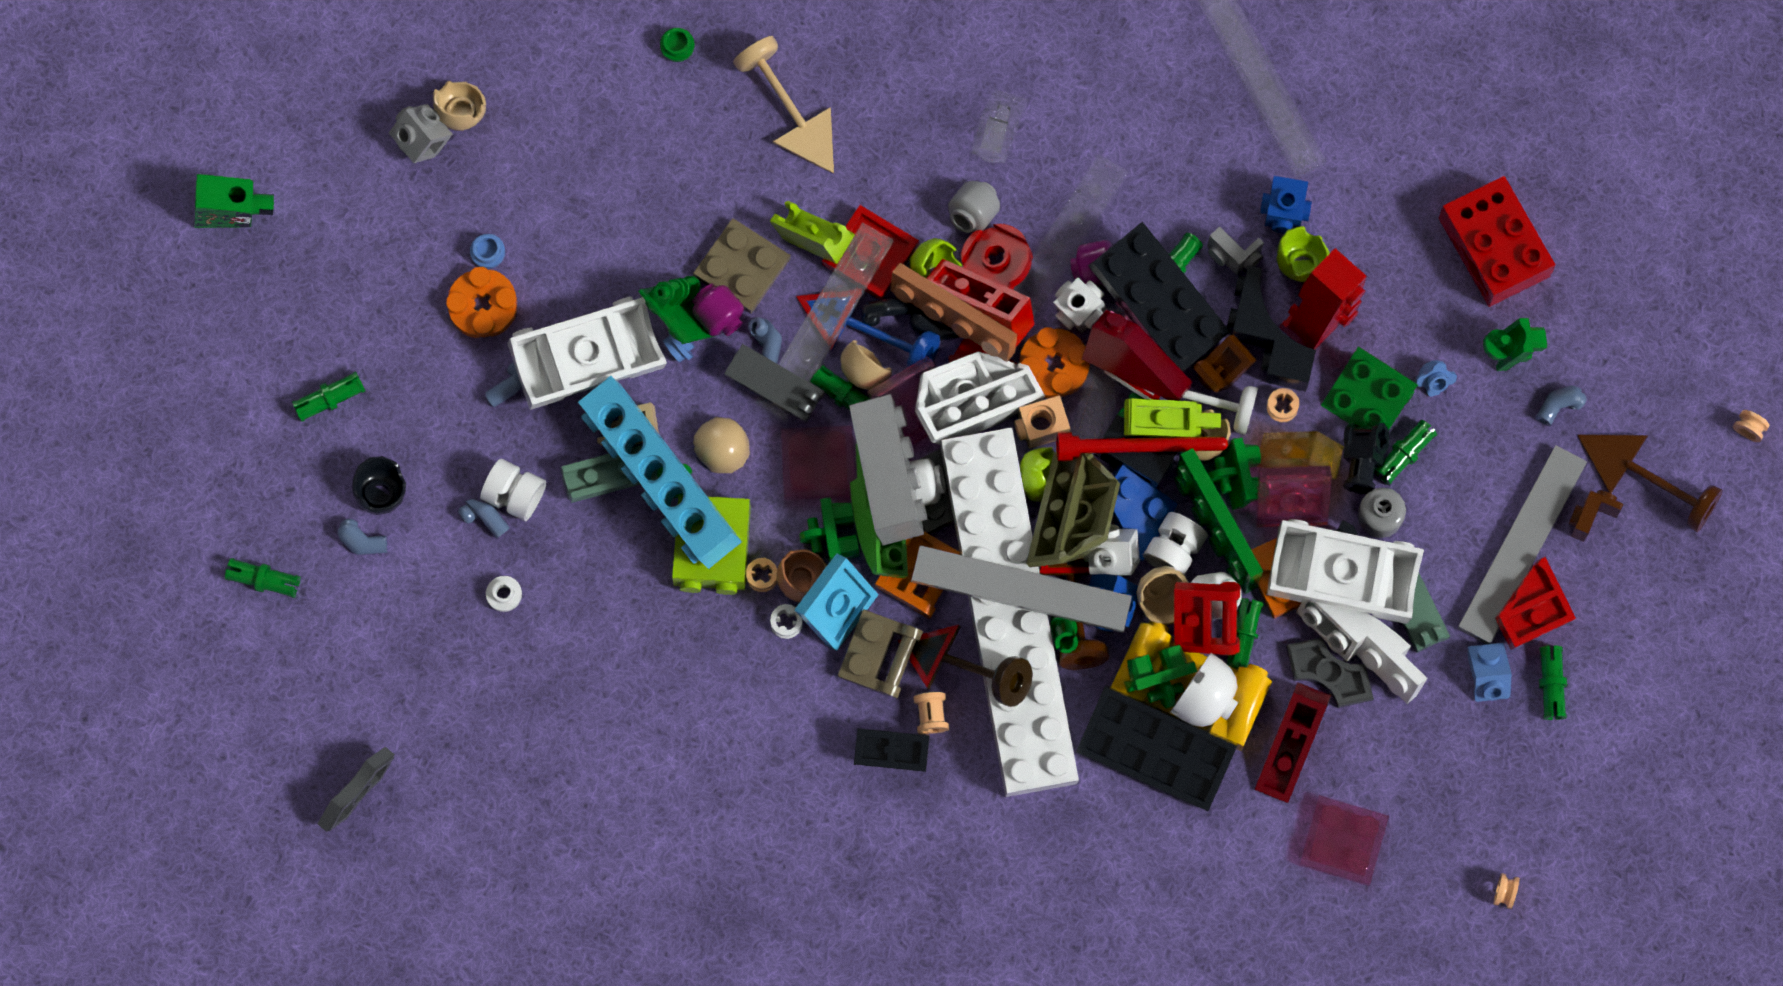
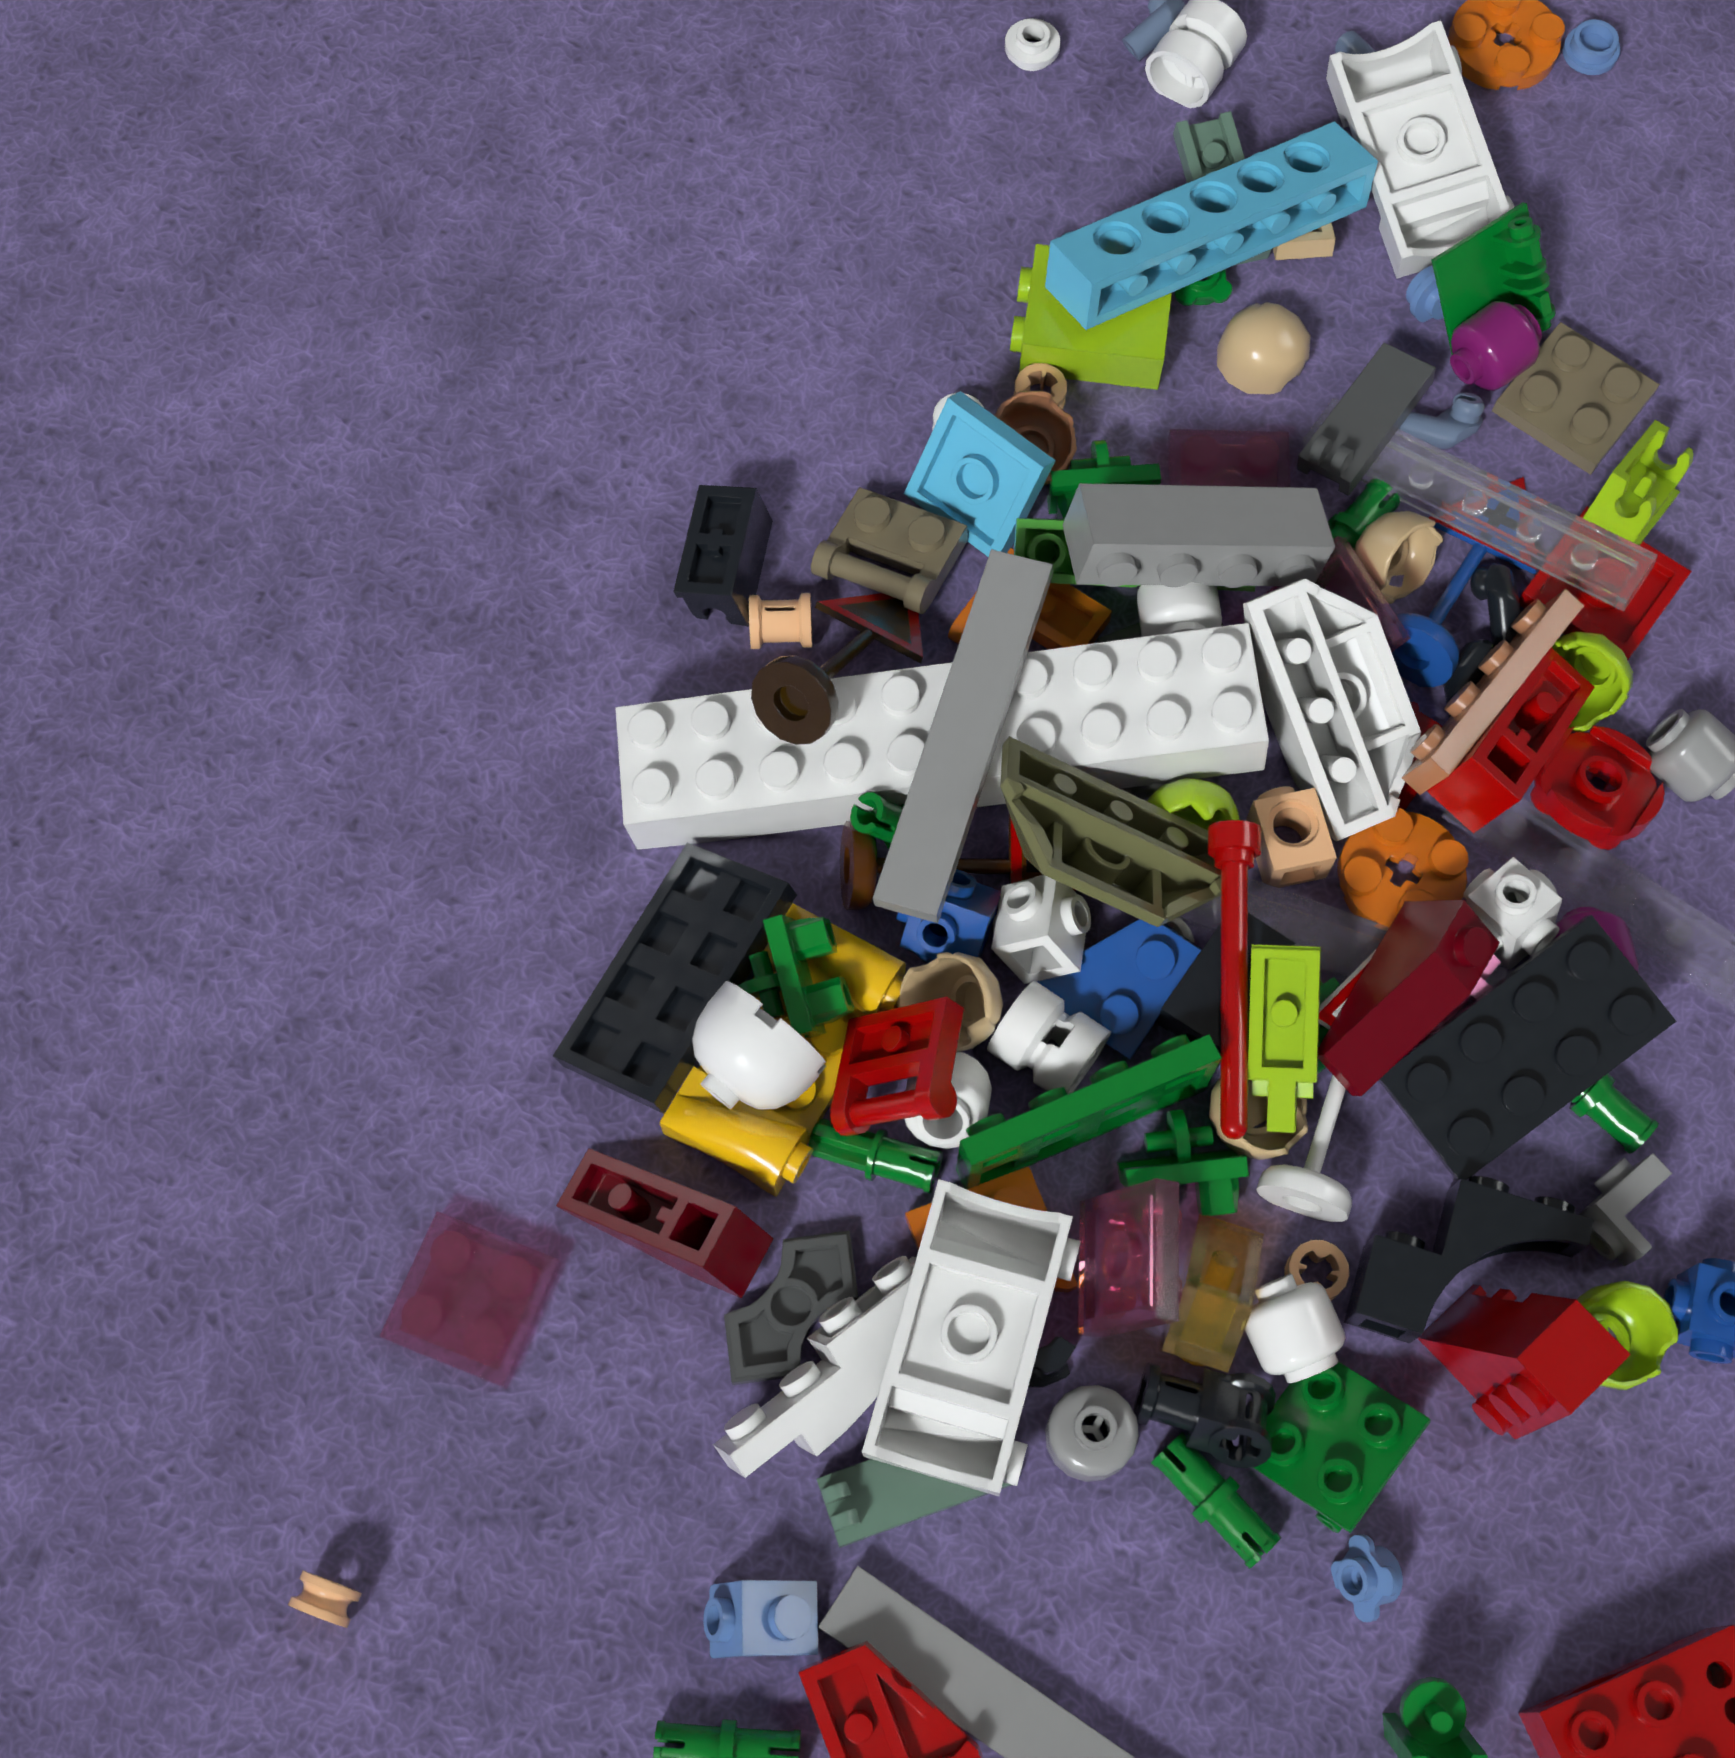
camera: 95 degrees right, 5 degrees down
(1224, 365) = (1394, 1164): reddish brown bracket -> none
(1319, 412) = (1294, 1329): none -> white head

